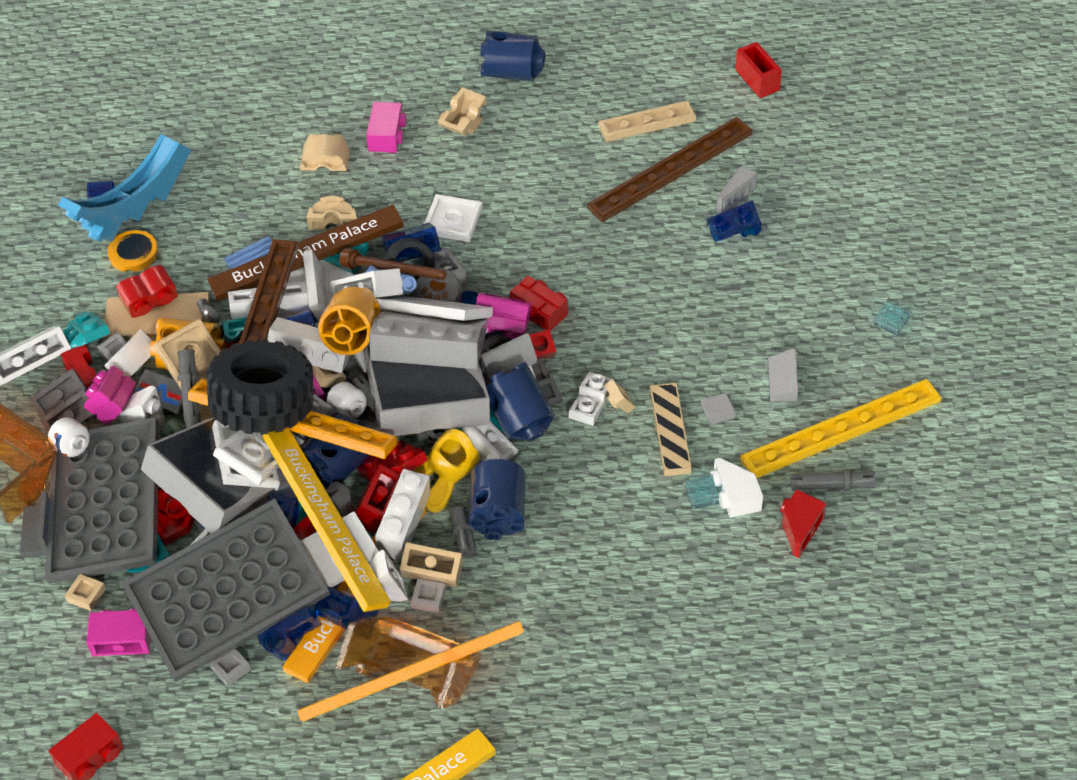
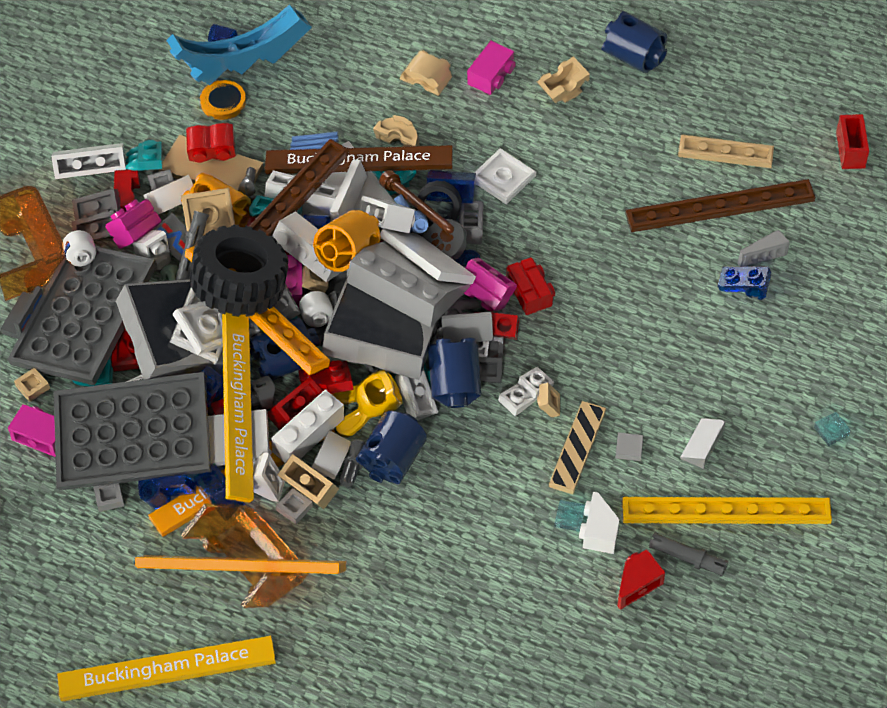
camera: 25 degrees right, 5 degrees up
(440, 530) = (331, 455): none -> white slope

